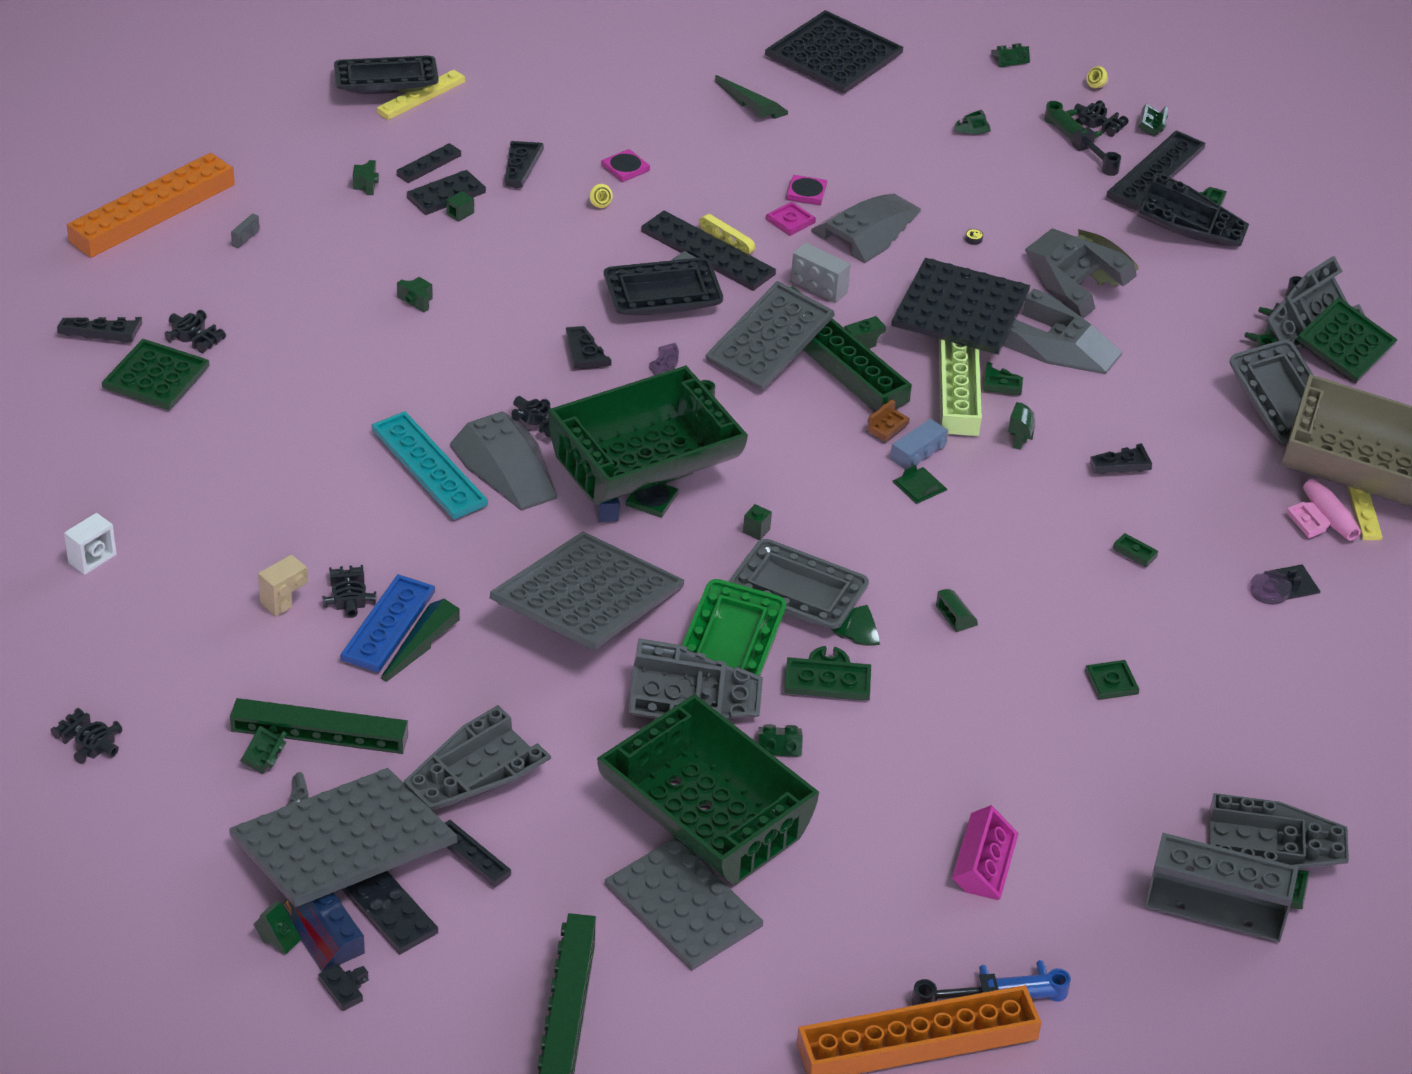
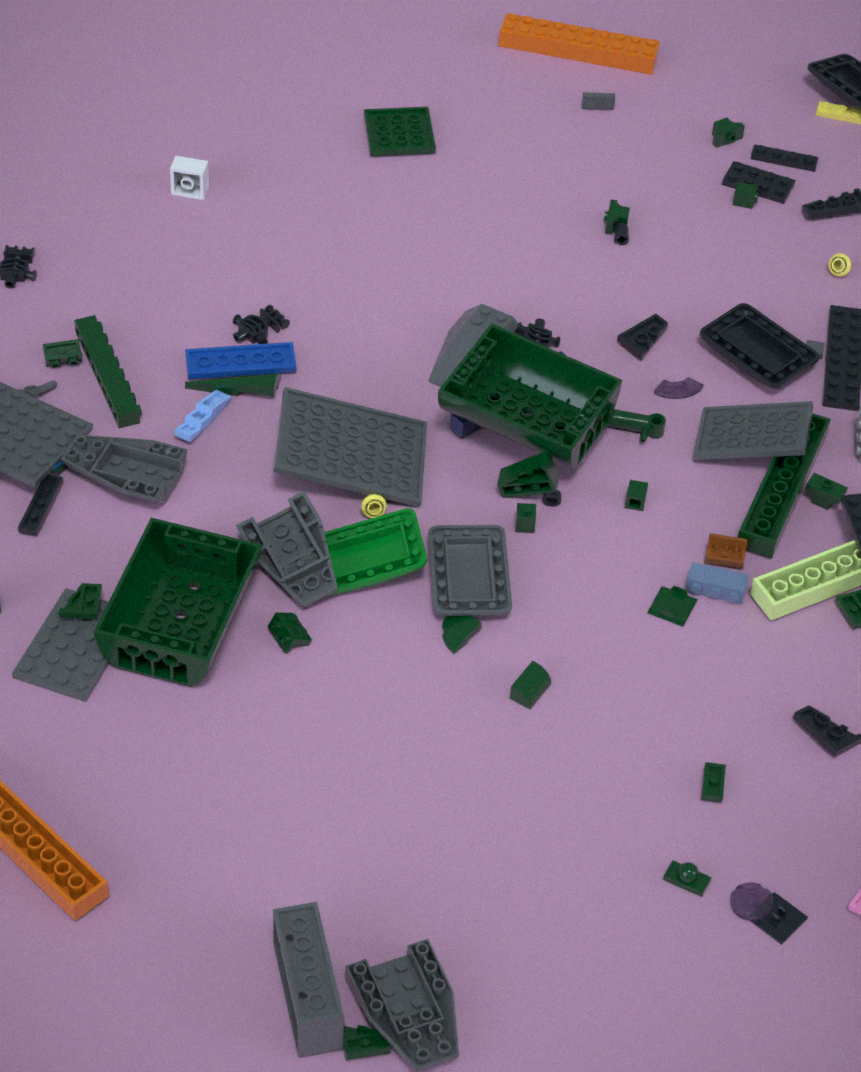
camera: 60 degrees right, 5 degrees up
(117, 329) = (424, 85): black wing -> none
(192, 328) = (464, 127): black piece -> none
(278, 583) = (222, 283): tan brick -> none
(429, 465) = (428, 309): teal plate -> none
(440, 300) = (621, 233): none -> black piece
(442, 682) = (203, 415): none -> light blue slope
(647, 866) = (83, 603): none -> dark green wing
(653, 500) = (503, 449): tile -> none
(664, 612) = (373, 506): none -> light yellow cone
(718, 492) = (529, 476): none -> dark green wedge
(743, 495) = (552, 499): none -> black tile
(780, 443) = (636, 495): none -> dark green brick
(828, 676) = (384, 633): dark green plate -> none
(985, 854) = (253, 810): dark pink slope -> none
(1021, 424) = (799, 637): dark green brick -> none
(1044, 985) = (104, 864): piece -> none
(1112, 679) = (534, 825): dark green tile -> none
(1224, 612) = (687, 877): none -> dark green tile

